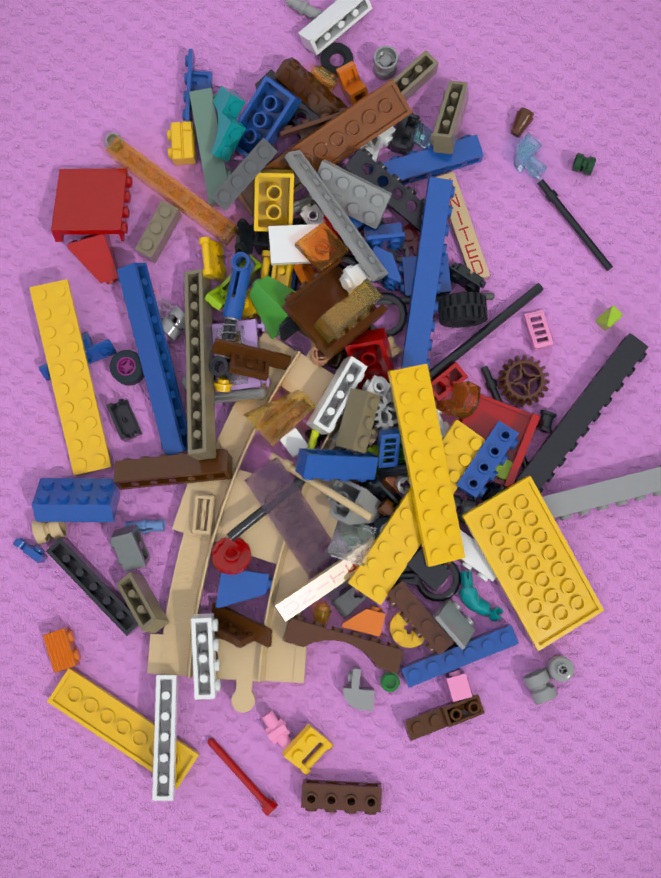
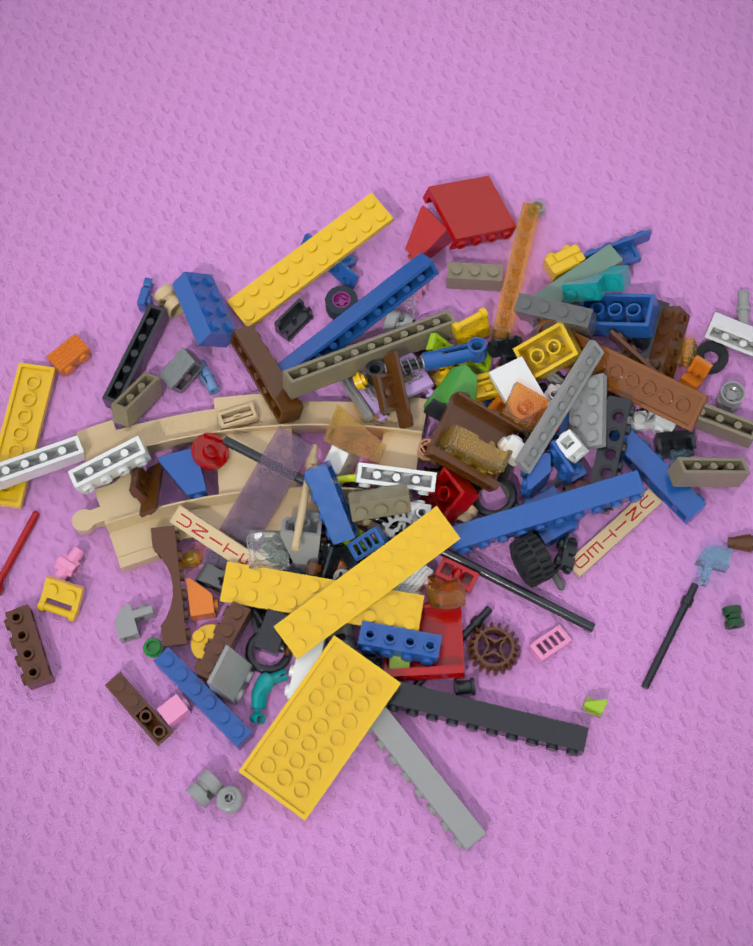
camera: 60 degrees right, 15 degrees down
(372, 229) = (571, 446): none -> white brick

